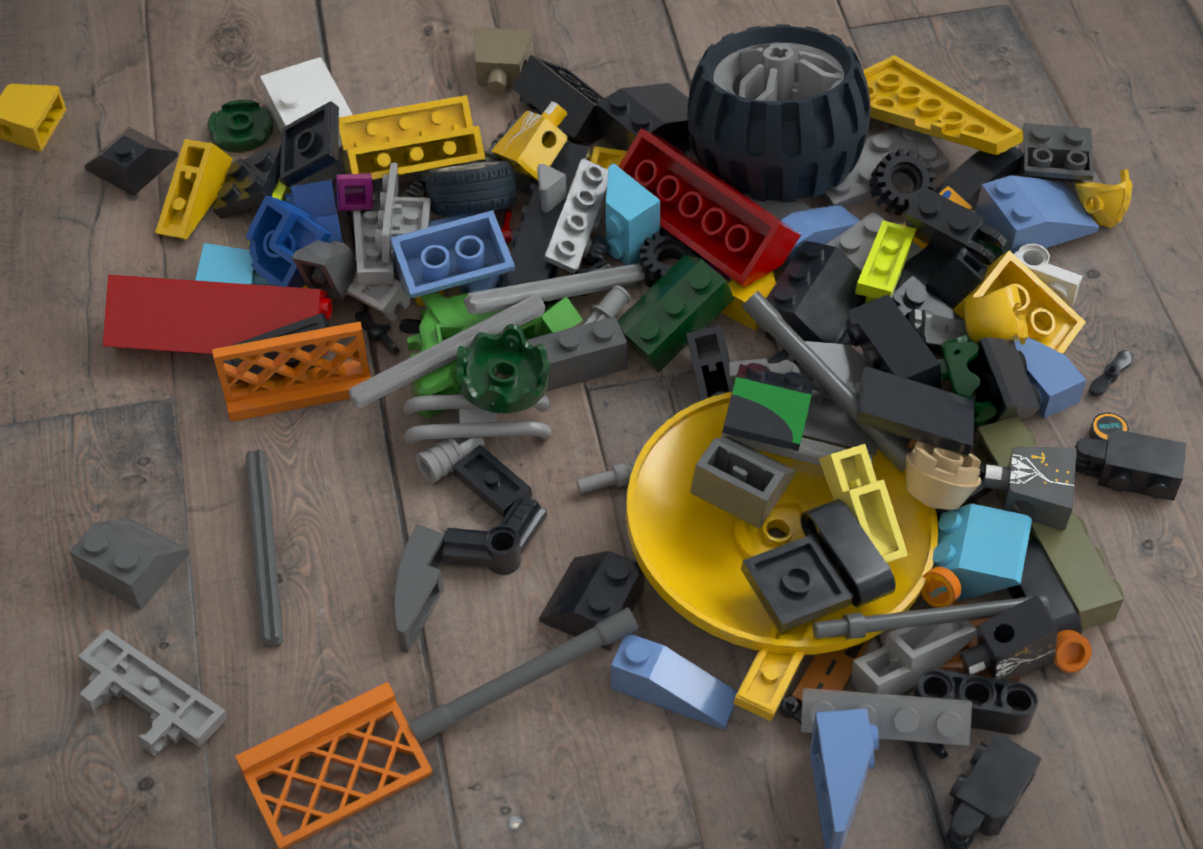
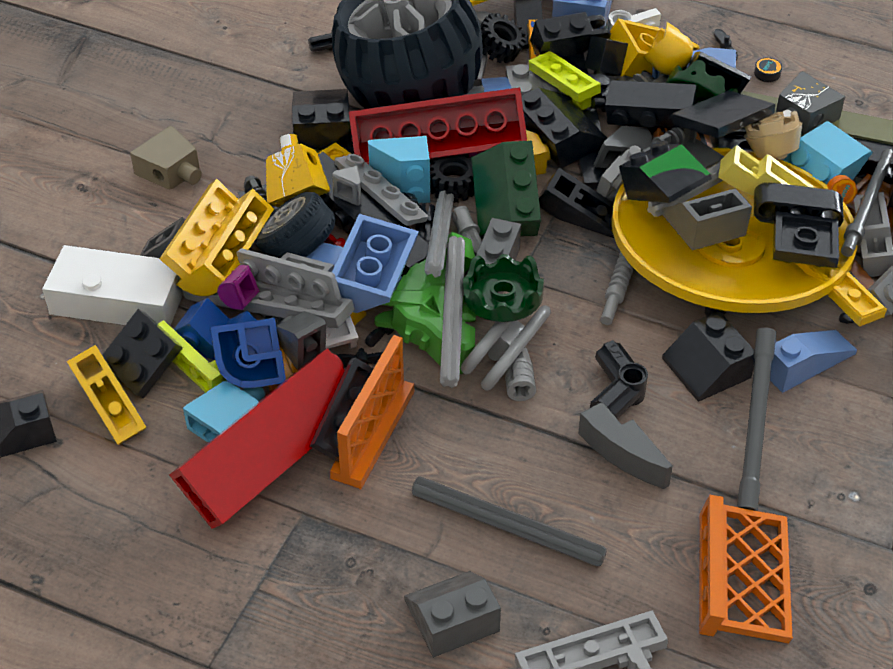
camera: 55 degrees left, 5 degrees down
(240, 126) = (58, 338): dark green tile -> none
(309, 144) = (165, 287): black plate -> none
(491, 480) = (564, 361): black plate -> none
(546, 82) = (243, 148): black slope -> none
(771, 321) = (614, 125): dark grey piece -> none
(1133, 463) = (813, 59): black hinge -> none

